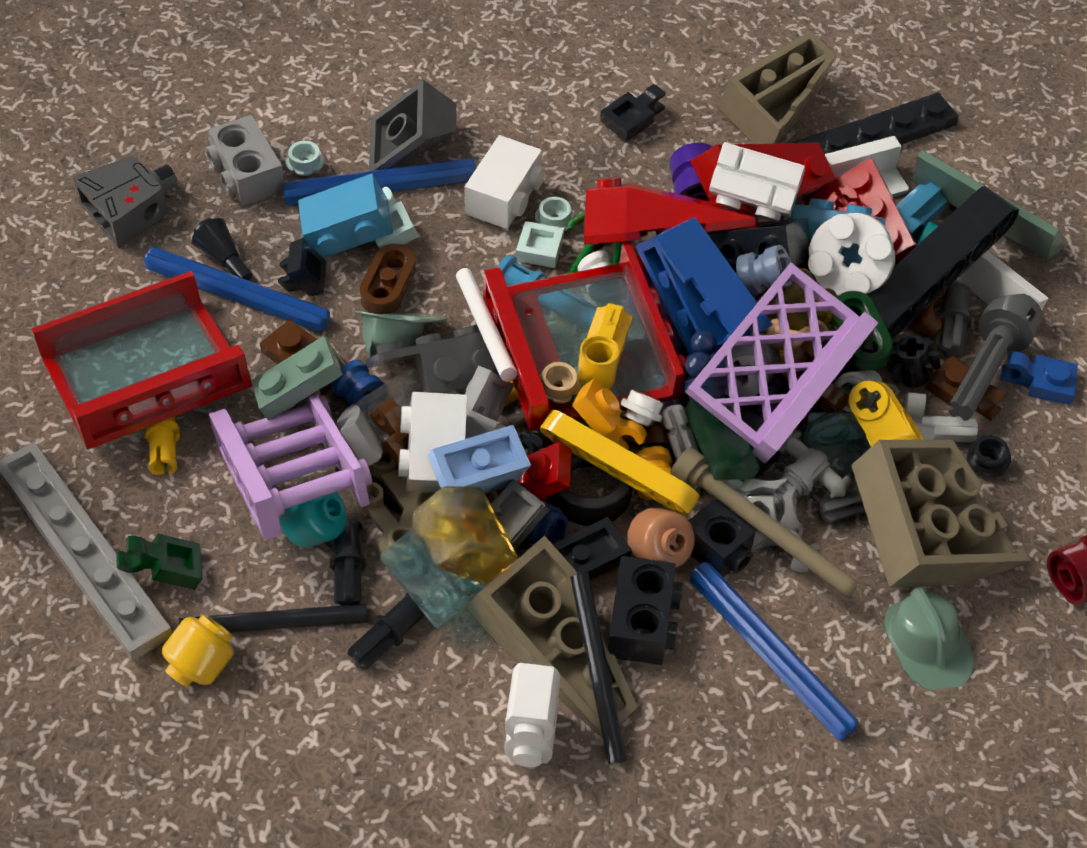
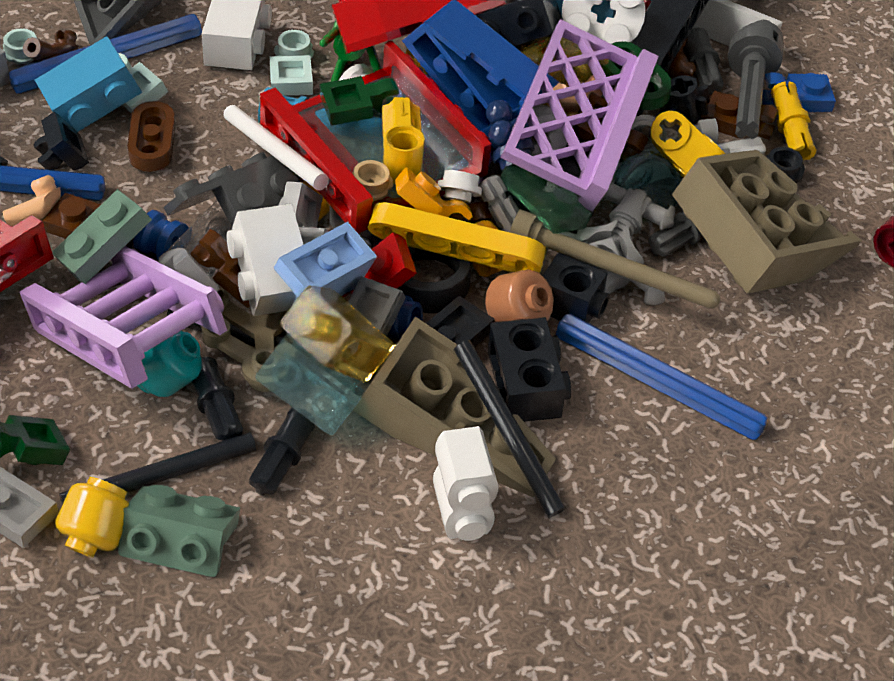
camera: 20 degrees left, 5 degrees down
(259, 329) = (39, 206): none -> light nougat arm
(267, 681) = (177, 529): none -> sand green bracket
(319, 167) = (41, 50): none -> reddish brown arm
(393, 327) = (167, 174): sand green piece -> none
(570, 293) = (353, 100): none -> dark green plate
(762, 270) = (531, 37): sand blue wheel -> none
(929, 640) = (795, 332): sand green piece -> none
(1019, 408) = (793, 119): none -> yellow pin

